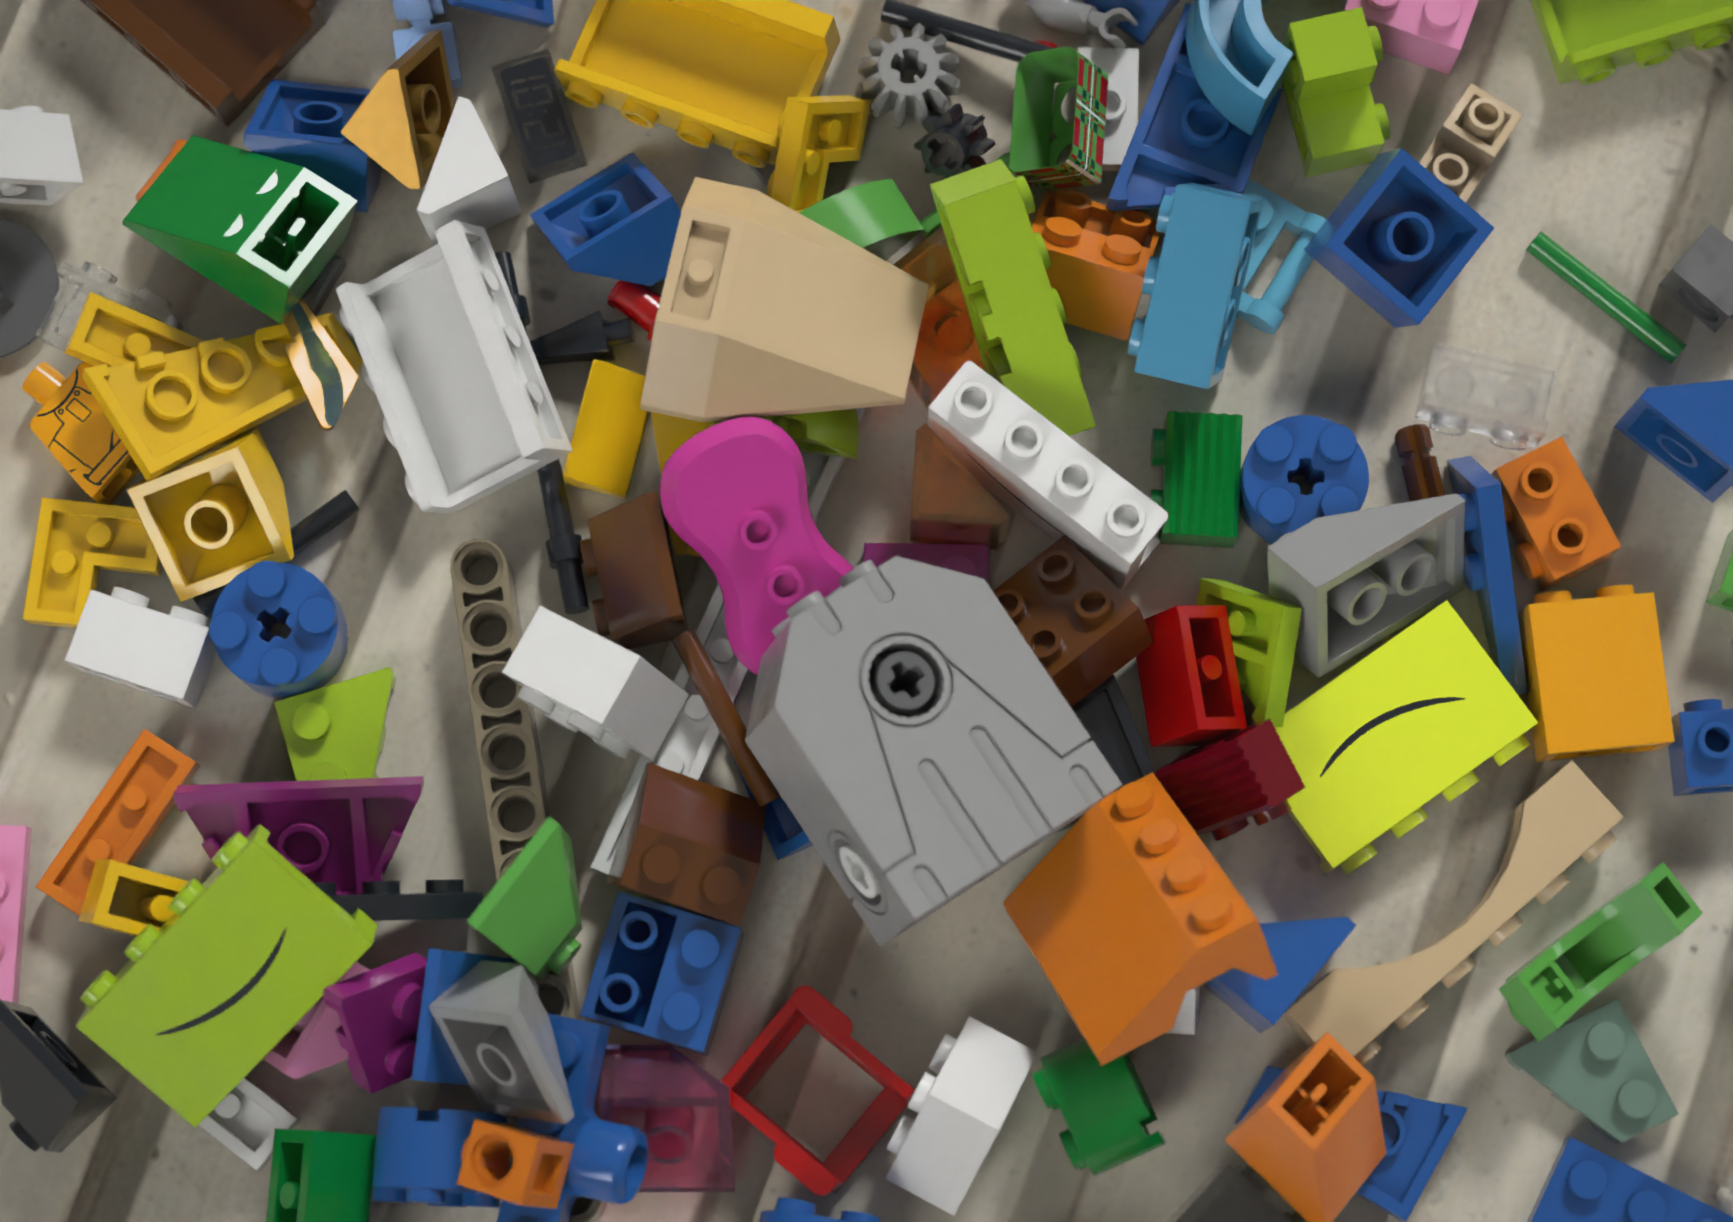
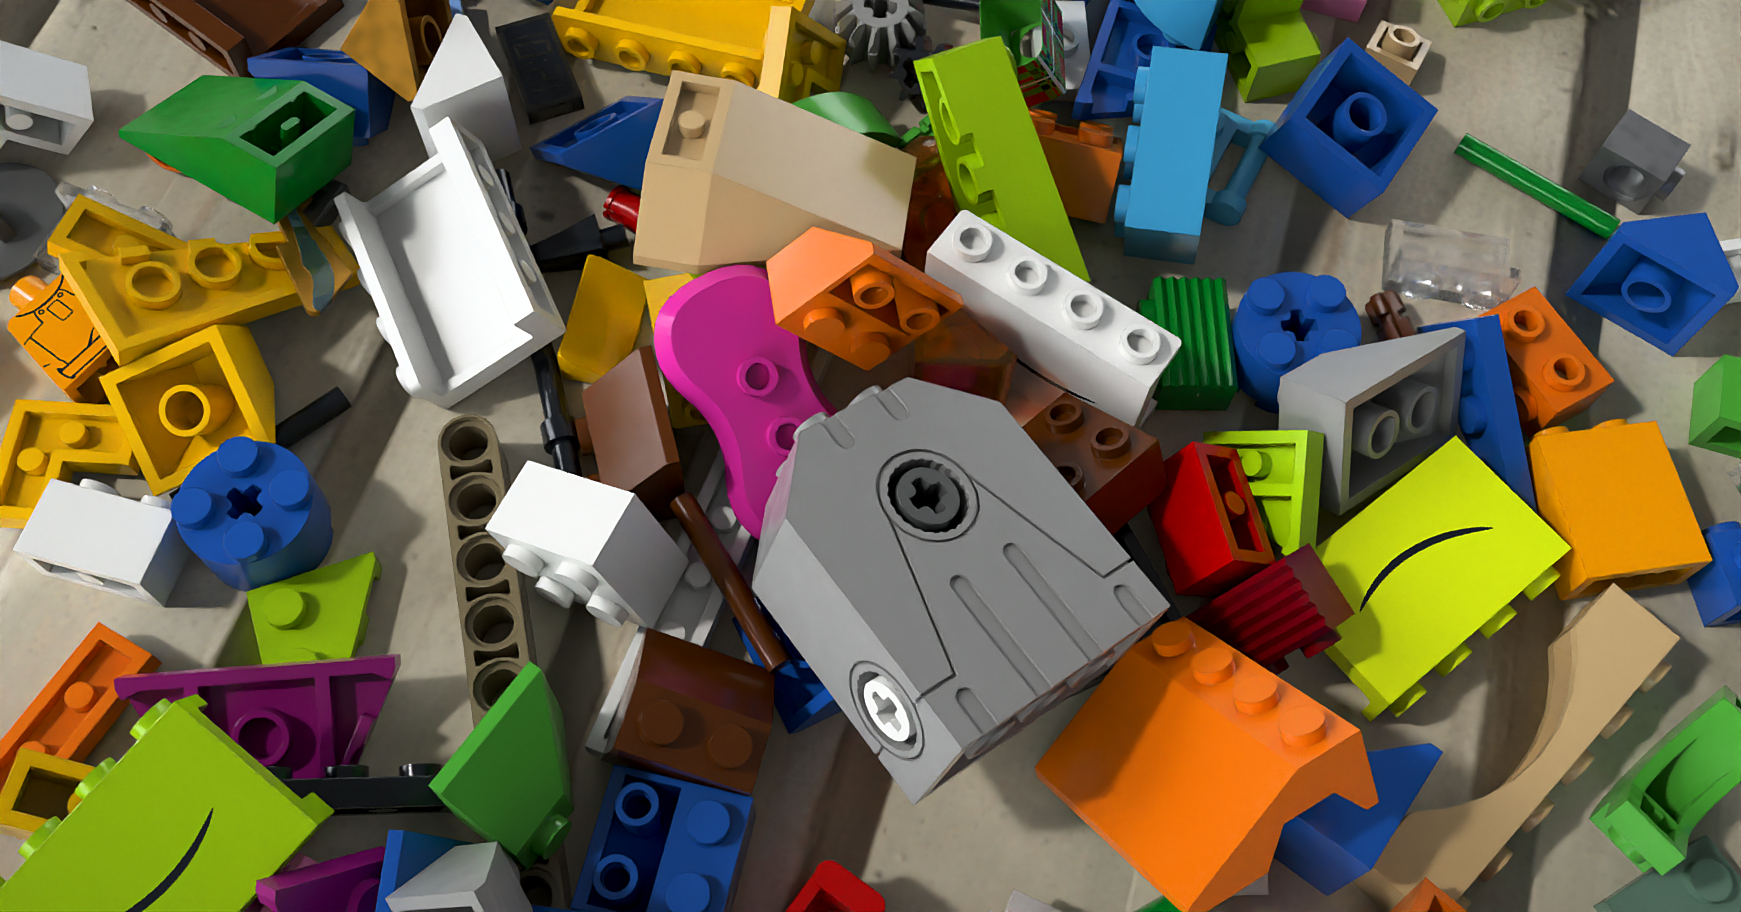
camera: 10 degrees left, 15 degrees down
(852, 458) = (854, 297): none -> orange slope

